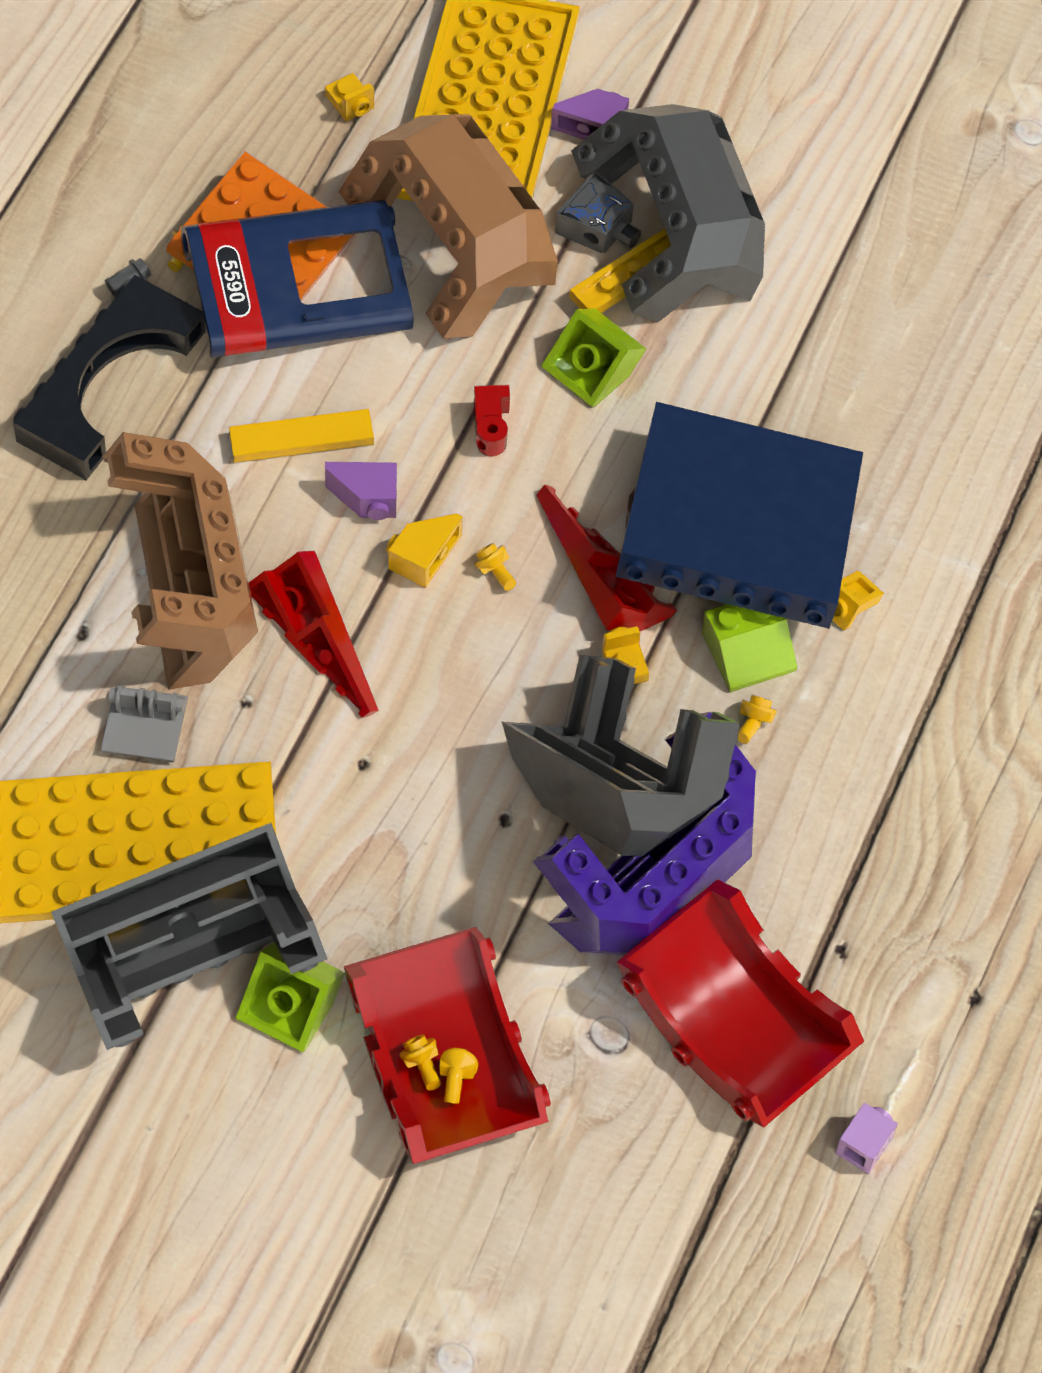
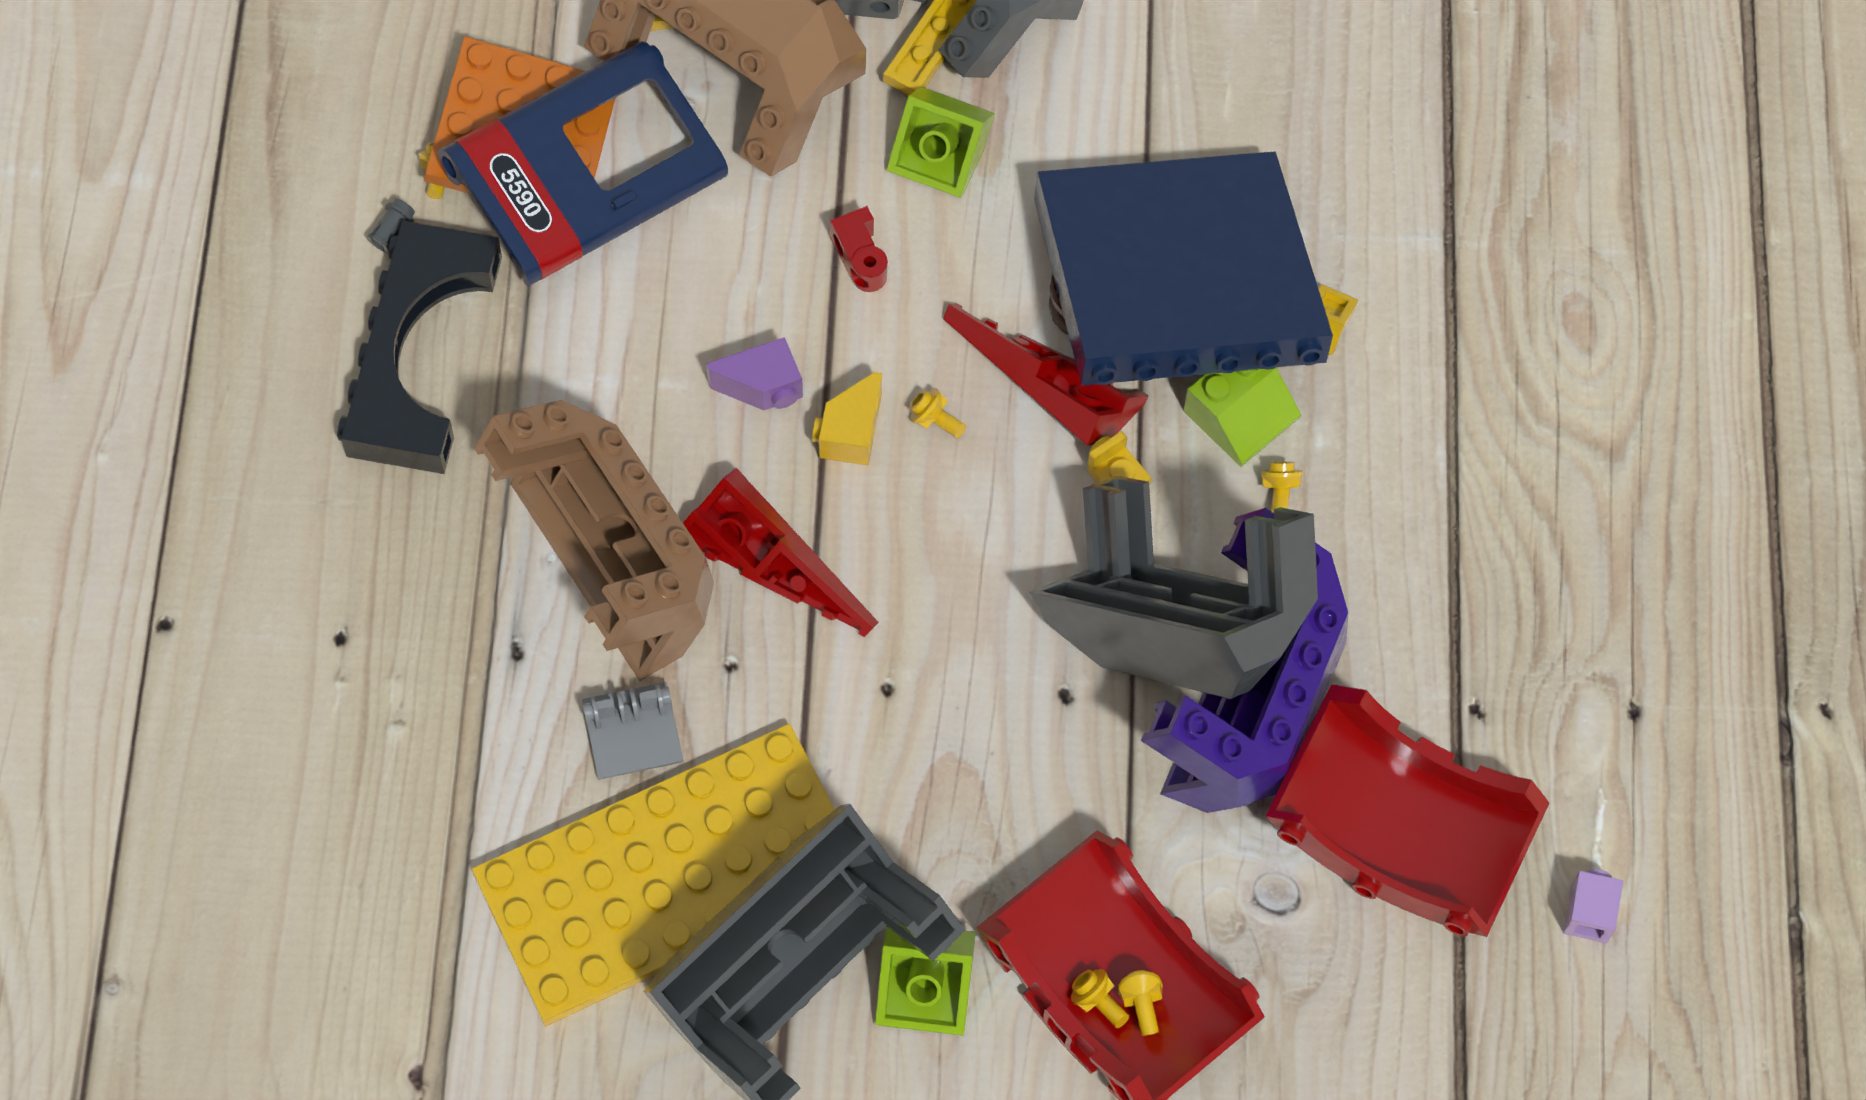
camera: 20 degrees left, 5 degrees up
(301, 435) = (660, 340): yellow tile -> none

